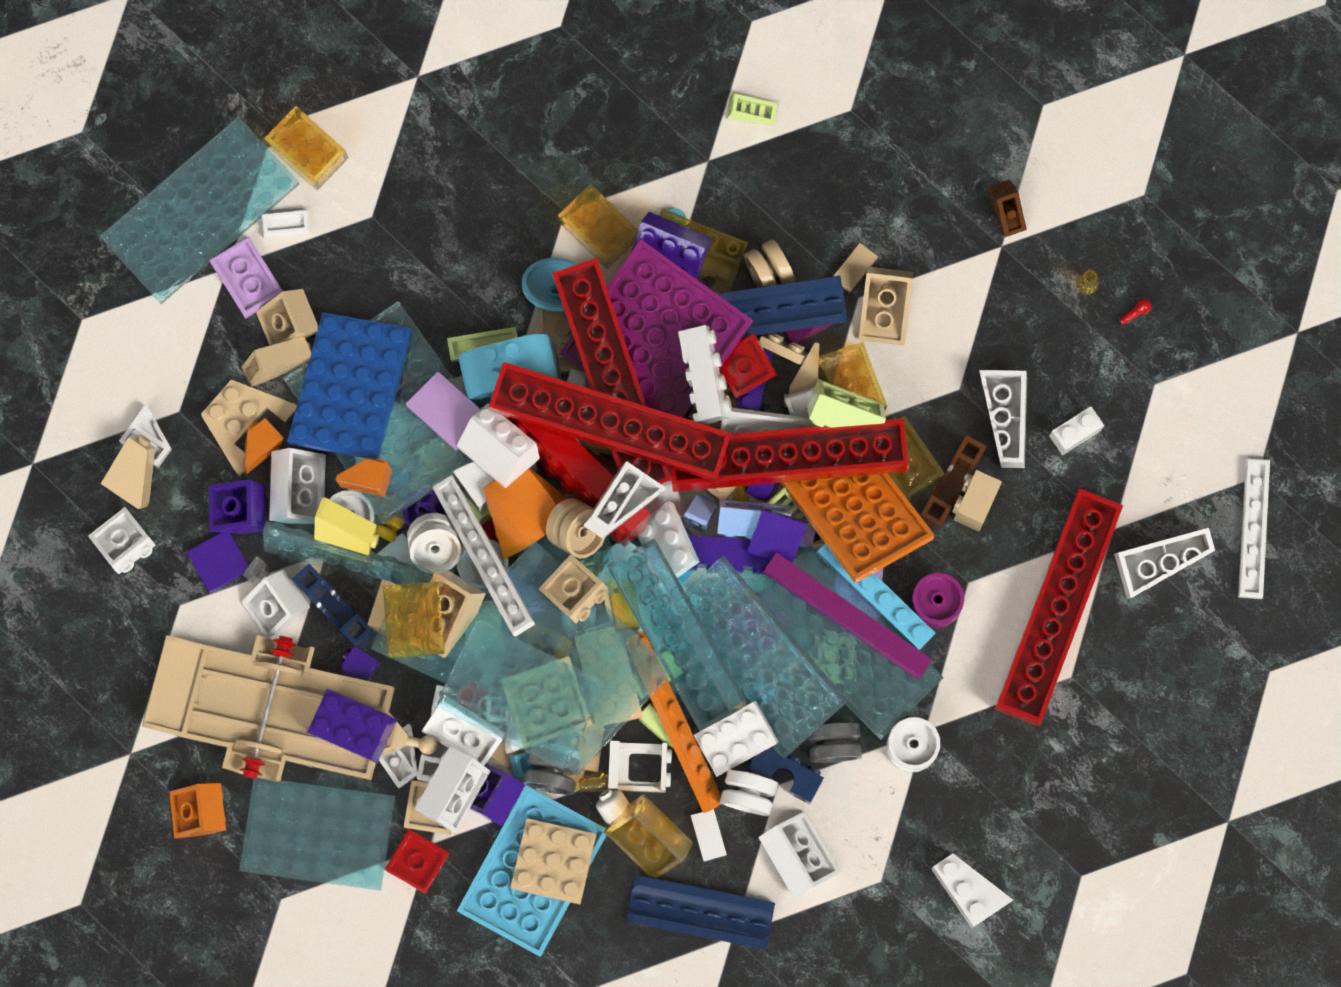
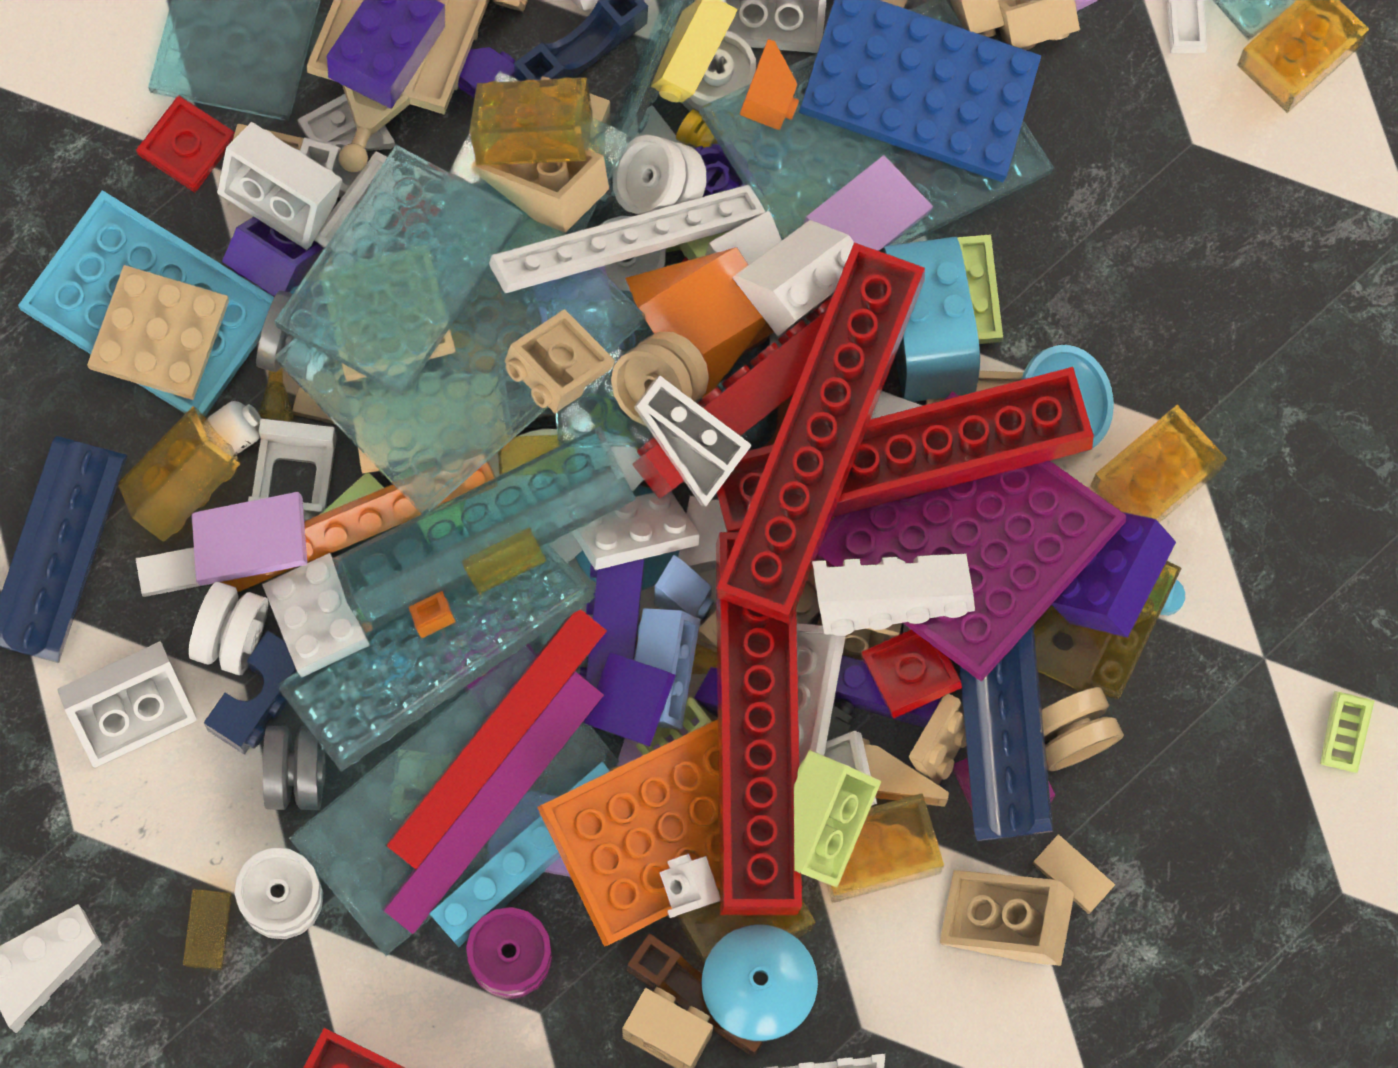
camera: 90 degrees right, 5 degrees down
(691, 784) = (249, 538): none -> lavender tile
(700, 617) = (504, 560): none -> clear yellow tile
(736, 661) = (432, 614): none -> orange tile
(812, 617) = (495, 738): none -> red tile
(894, 489) = (689, 884): none -> white brick
(936, 790) = (207, 929): none -> clear yellow tile
(941, 461) = (754, 1009): none -> medium azure dish

